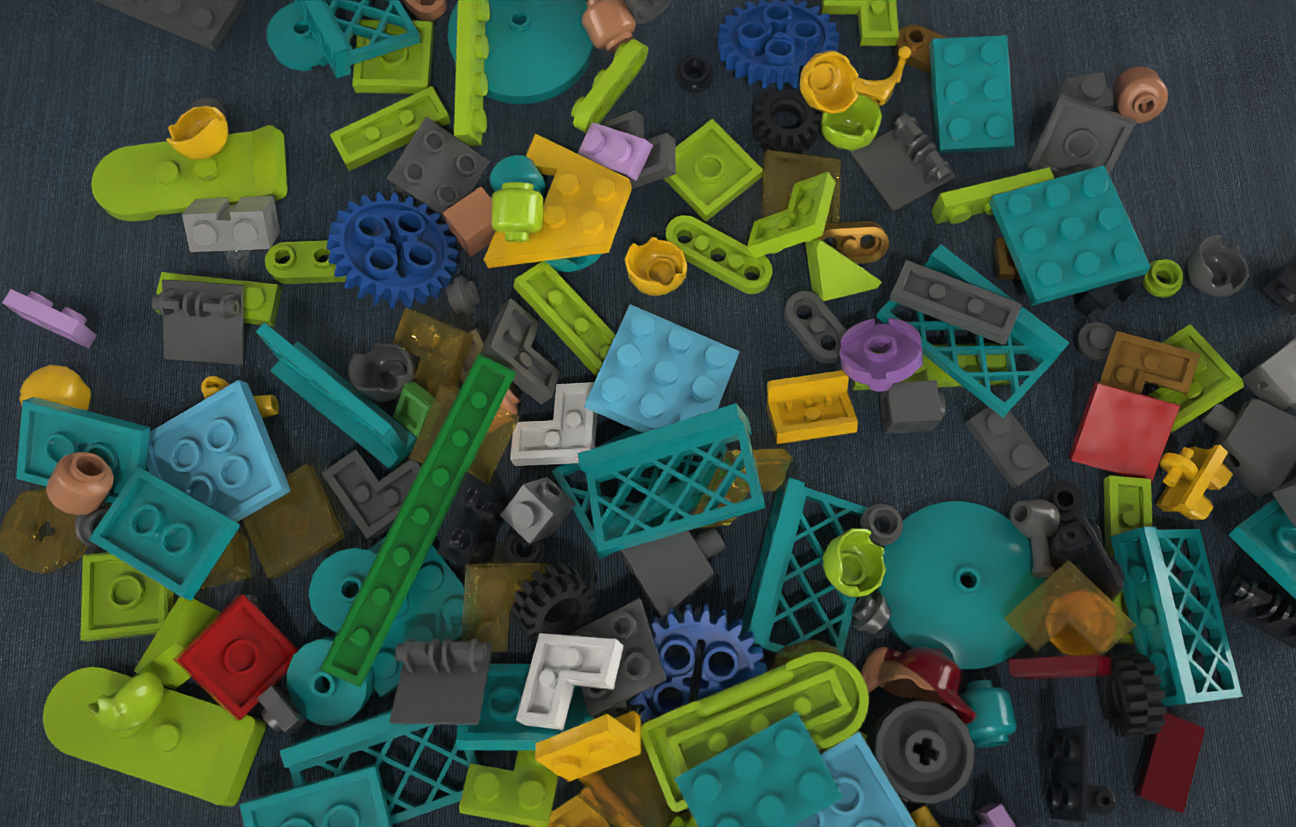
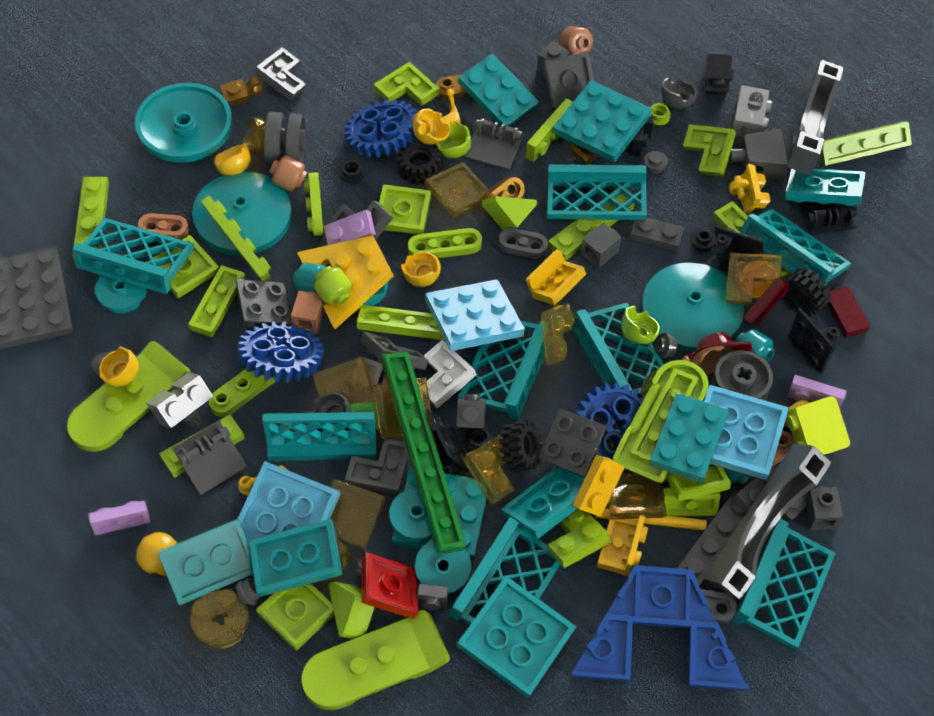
camera: 40 degrees left, 15 degrees down
(79, 483) = (226, 569): nougat head -> none
(130, 704) = (358, 646): lime hair -> none
(441, 682) = (501, 513): dark grey hinge -> none
(462, 295) = (335, 350): dark grey plate -> none
(558, 666) = (552, 460): white plate -> none
(671, 444) = (506, 339): teal fence -> none
(672, 567) = (554, 390): dark grey torso -> none
(799, 223) = (476, 195): lime plate -> none
(881, 370) = (559, 235): medium lavender plate -> none
(891, 518) = (635, 299): dark grey plate -> none
(955, 302) = (580, 183): dark grey plate -> none
(1039, 522) = (704, 256): dark grey bar -> none
(1123, 431) = (702, 189): red tile -> none
(1142, 361) = (681, 158): pearl gold plate -> none

